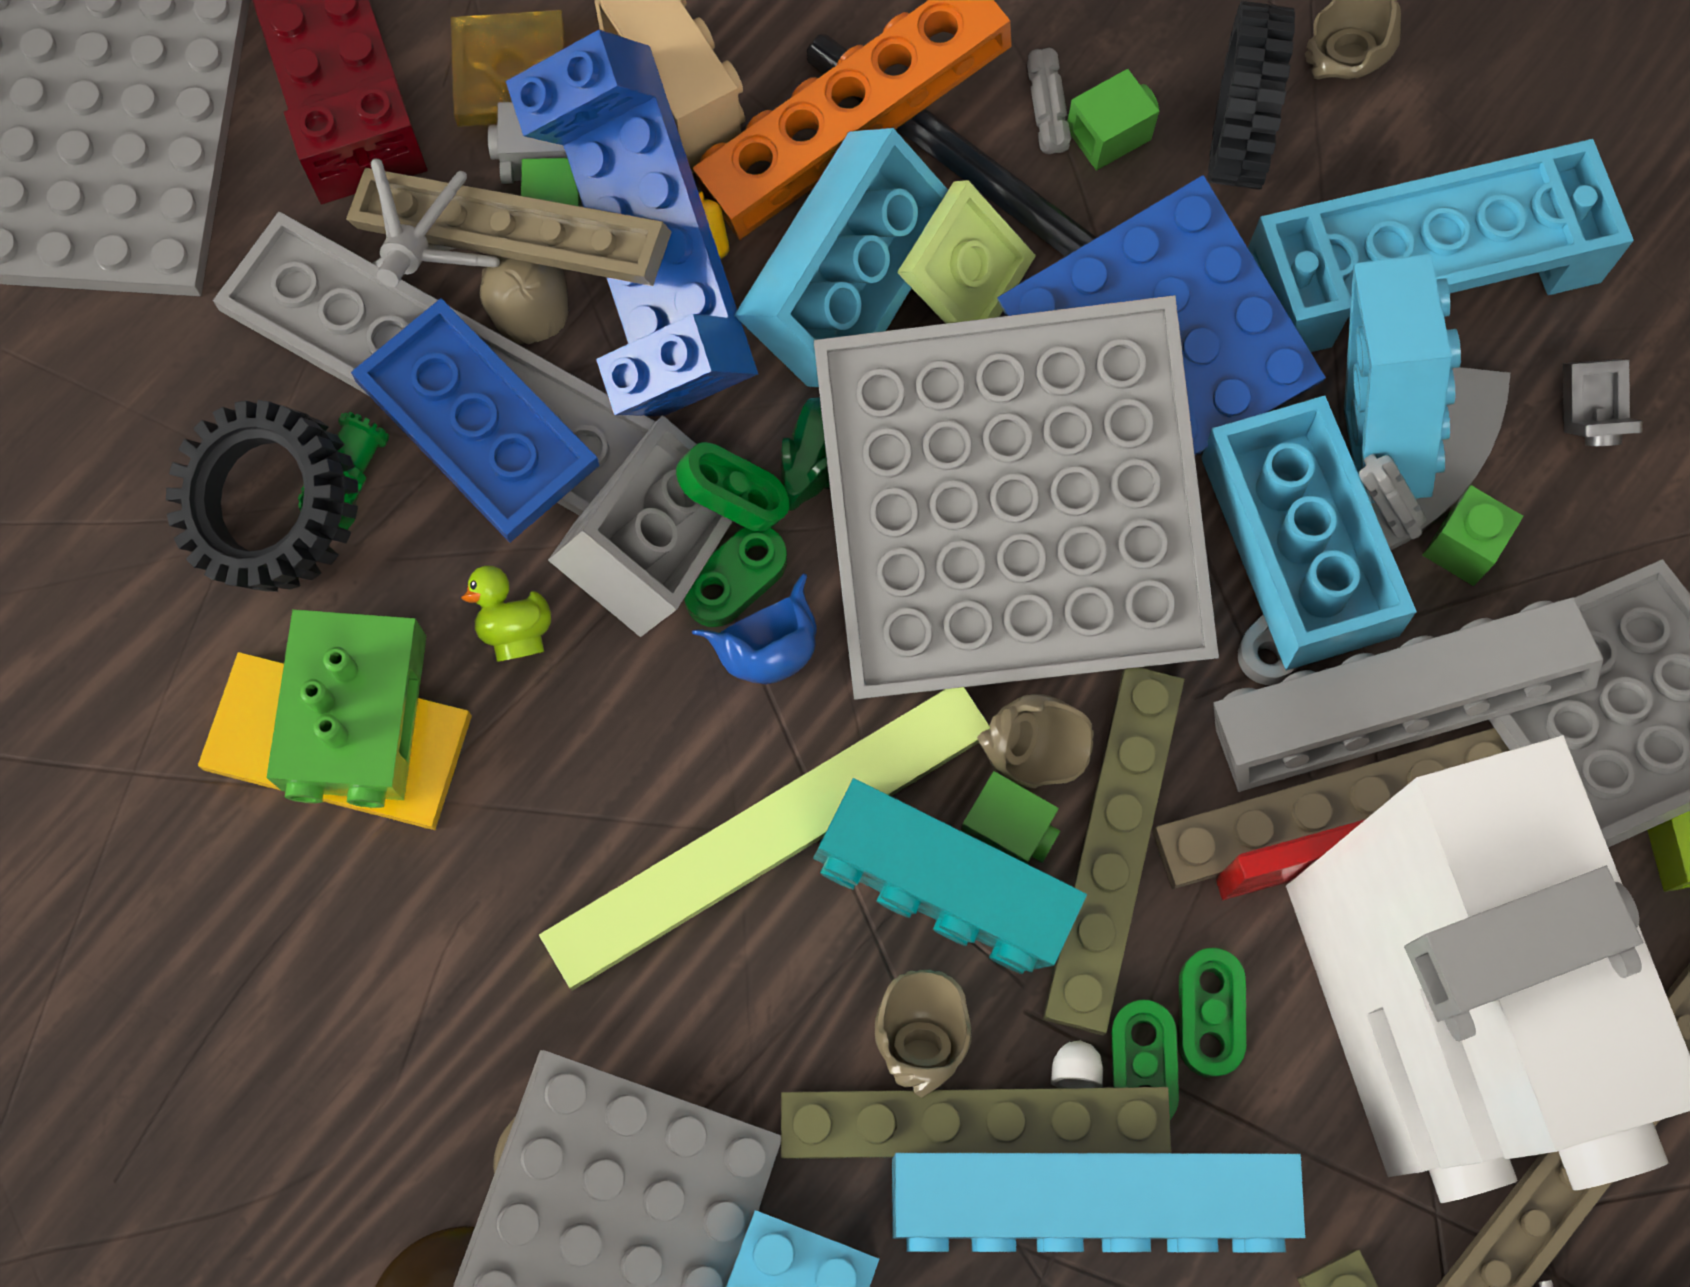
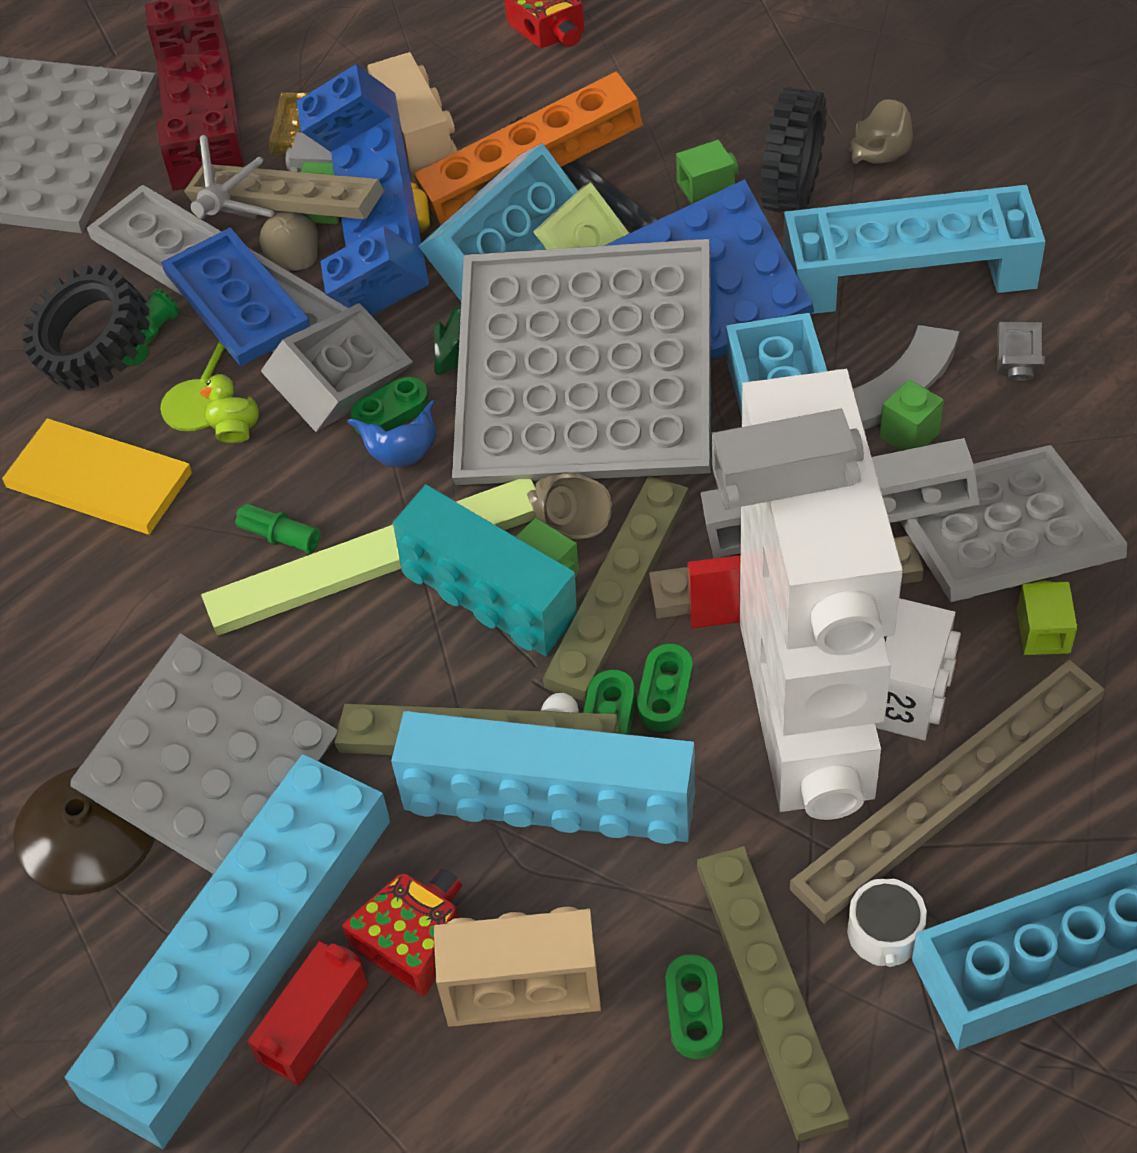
camera: 15 degrees right, 20 degrees down
(347, 707) = (108, 445): bright green piece -> none
(435, 585) = (183, 404): none -> lime piece
(620, 807) = (278, 528): none -> green axle
(732, 487) = (396, 346): green plate -> none
(923, 1029) = (451, 666): dark tan hair -> none
(1048, 101) = (666, 163): light grey axle -> none
(1392, 496) = (837, 357): light grey axle -> none
(1400, 368) = (855, 295): medium azure brick -> none

